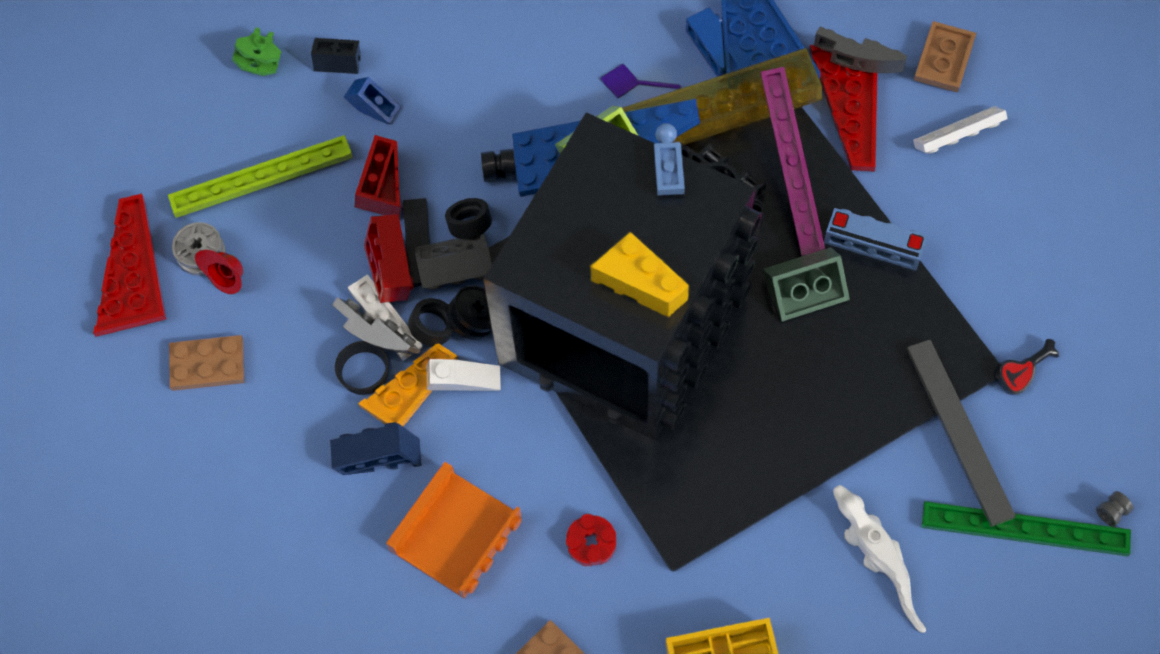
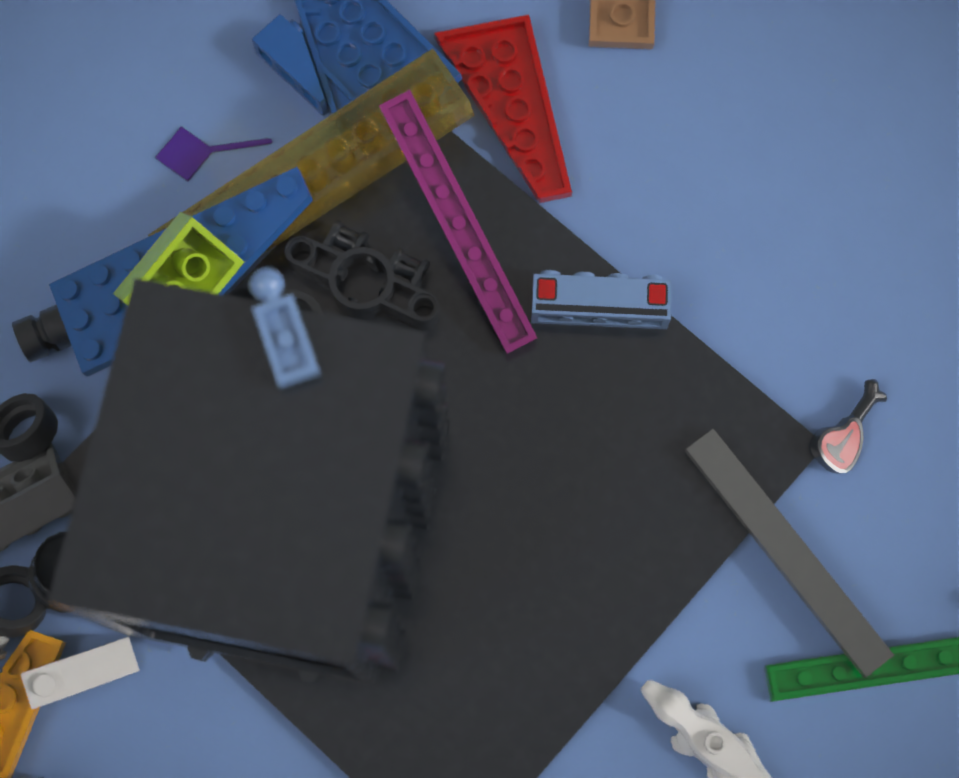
camera: 20 degrees left, 10 degrees up
(640, 274) = (288, 535): yellow wedge -> none
(807, 283) = (524, 394): sand green slope -> none
(865, 57) = (518, 33): dark grey slope -> none
(966, 127) = (671, 104): white plate -> none

